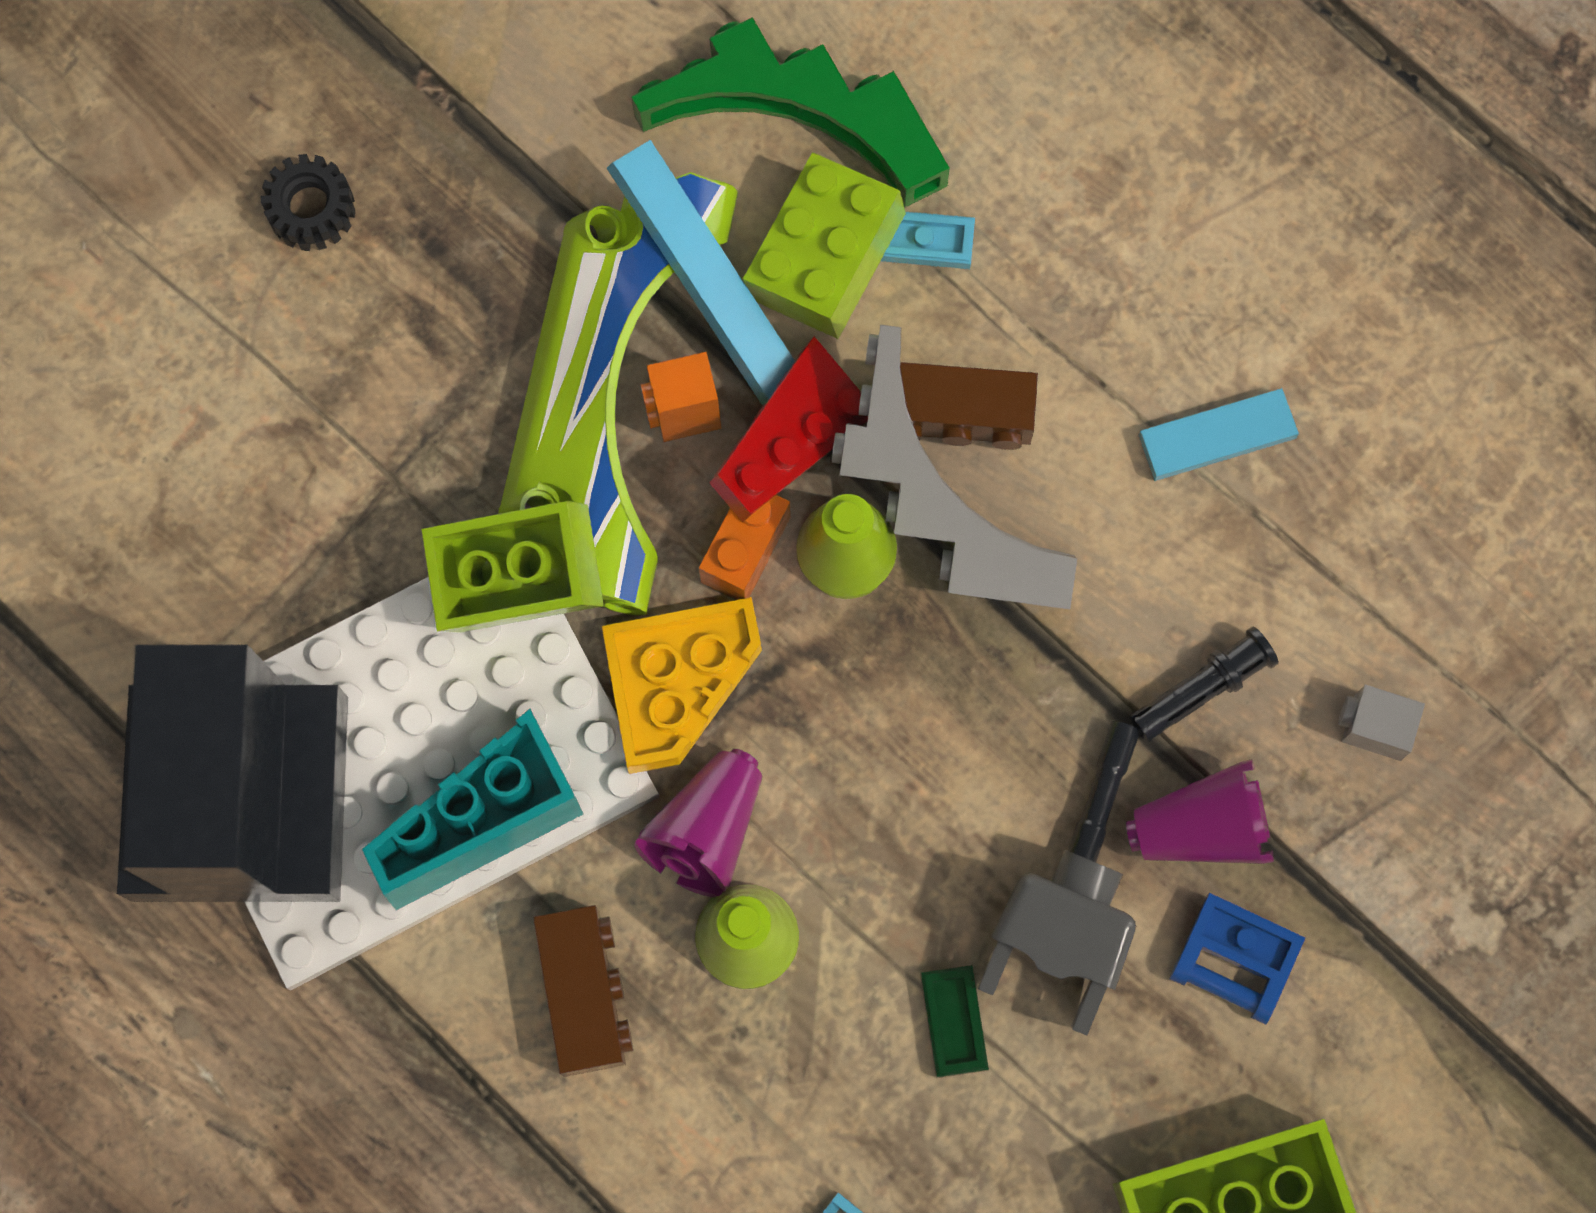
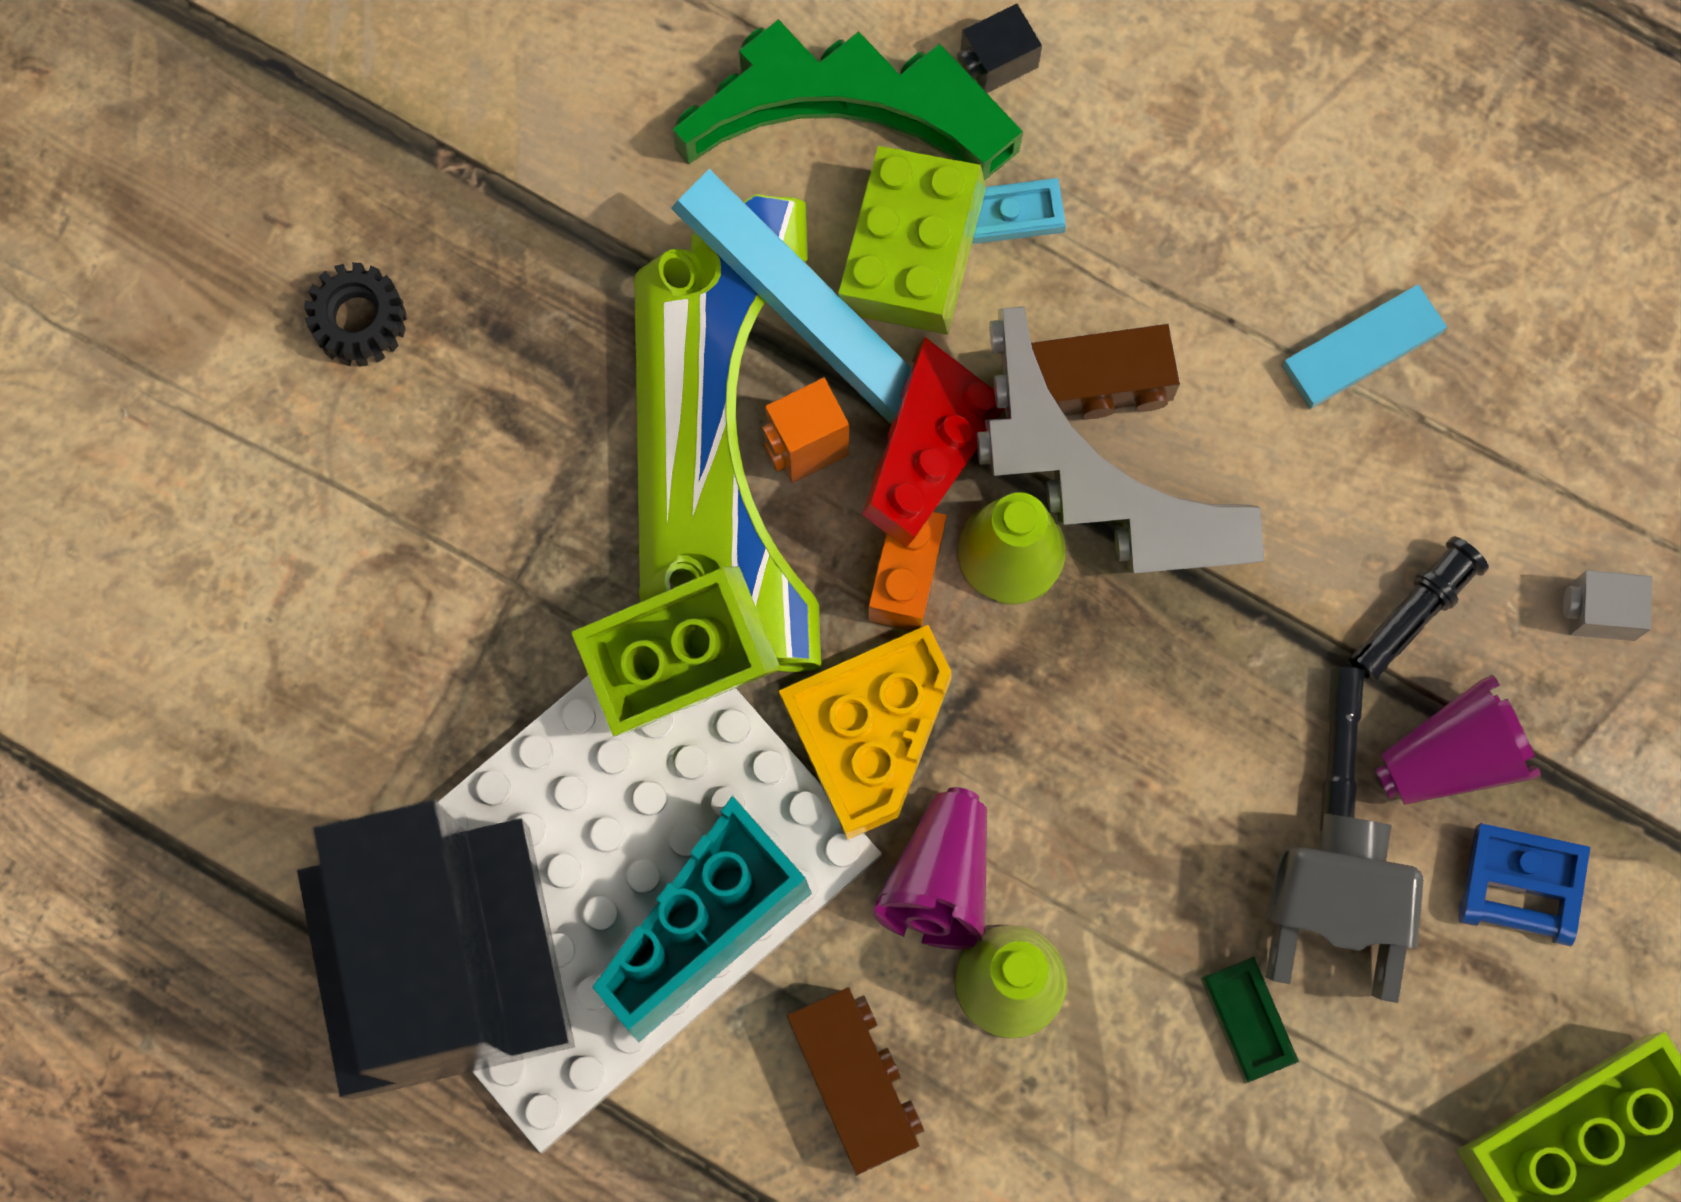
camera: 15 degrees left, 0 degrees up
(949, 88) = (999, 48): none -> black brick

